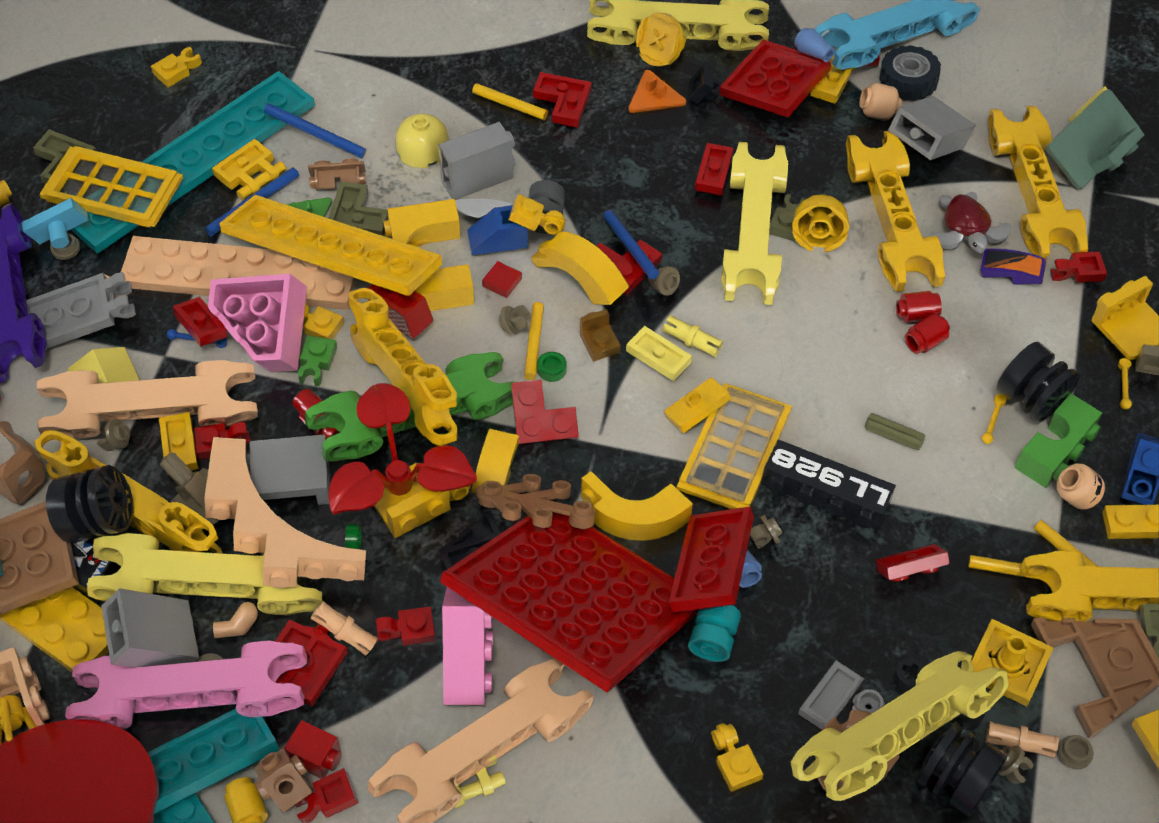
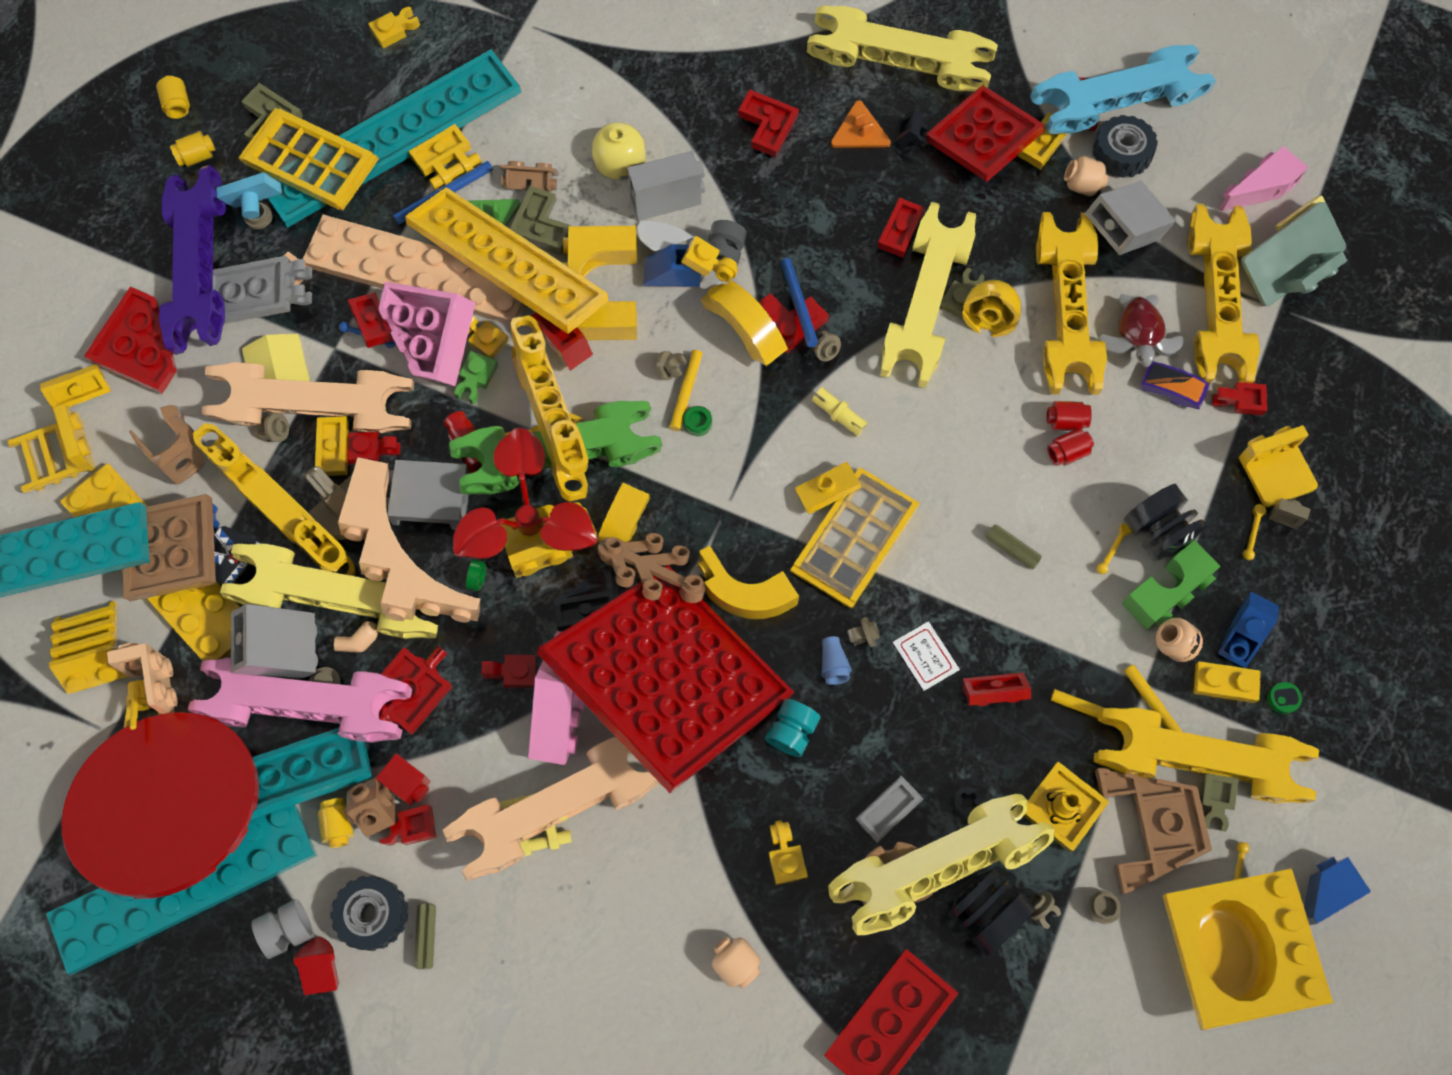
camera: 10 degrees right, 15 degrees up
(89, 504) = (232, 511): black wheel -> none
(315, 130) = (515, 123): blue bar -> none
(344, 628) = (451, 666): light nougat pin -> none
(502, 279) = (667, 317): red tile -> none
(510, 101) = (714, 117): yellow bar -> none
(536, 423) = (667, 479): red plate -> none
(598, 335) = (749, 396): pearl gold bracket -> none
(659, 353) = (802, 425): light yellow plate -> none
(660, 39) = (877, 71): yellow tile -> none
(711, 560) = (804, 659): red plate -> none
(812, 44) = (1029, 103): medium blue cone -> none
(827, 484) = (934, 594): black brick -> none
(832, 546) = (926, 656): none -> white sticker
(868, 697) = (924, 818): light grey plate -> none
(1027, 740) = (1056, 885): light nougat pin -> none
(1051, 84) = (1268, 182): none -> bright pink slope

